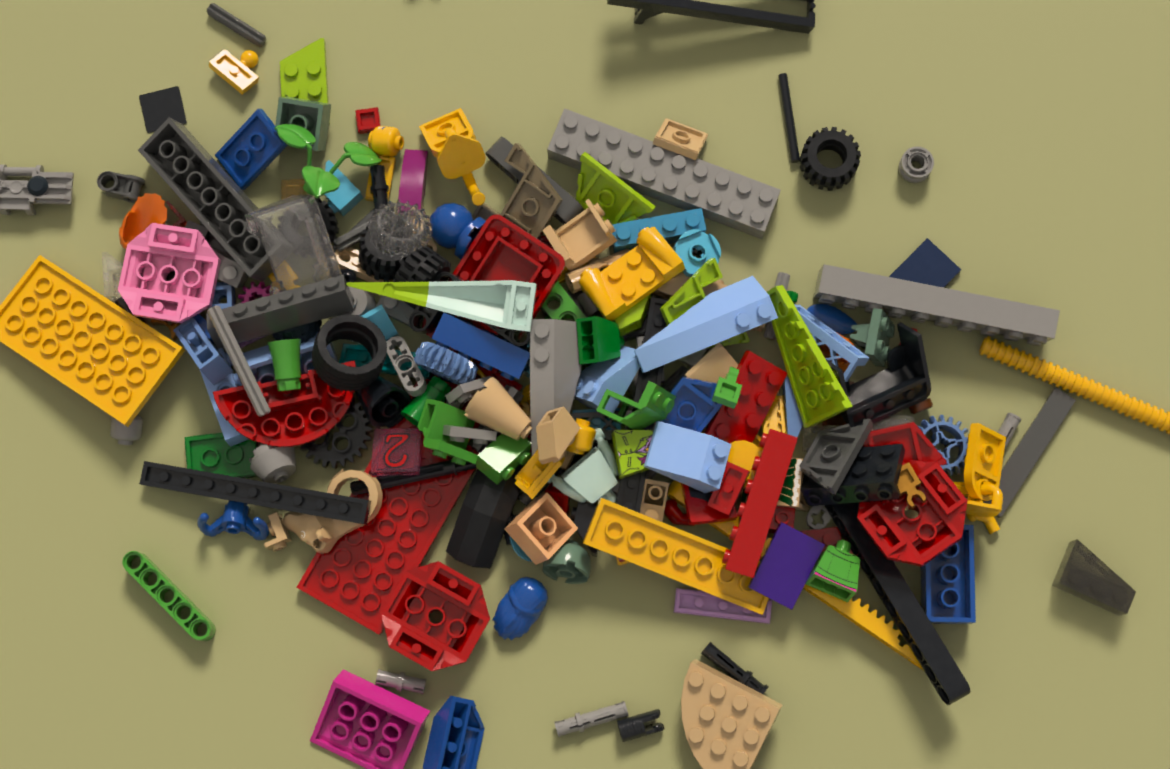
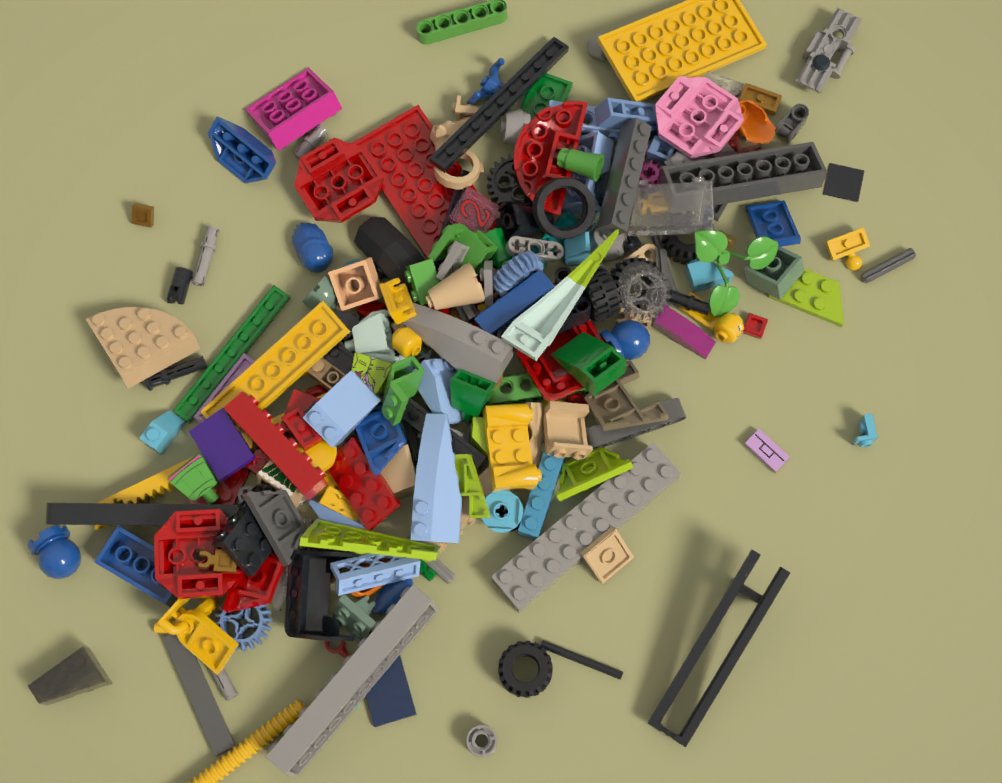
camera: 120 degrees right, 5 degrees down
(107, 232) = (765, 99): none -> pearl gold plate
(238, 360) = (599, 127): light grey axle -> none
(456, 149) = (698, 369): yellow plate -> none
(492, 49) = (766, 450): none -> lavender tile
(503, 240) = (591, 362): none -> green slope
(555, 434) = (412, 316): tan slope -> none
(681, 625) = (238, 345): none -> green tile
(727, 389) = (372, 463): bright green plate -> none
(802, 644) = (162, 431): none -> medium azure slope
(926, 404) = (280, 626): reddish brown tile -> none
(988, 668) = (56, 553): none -> blue tile

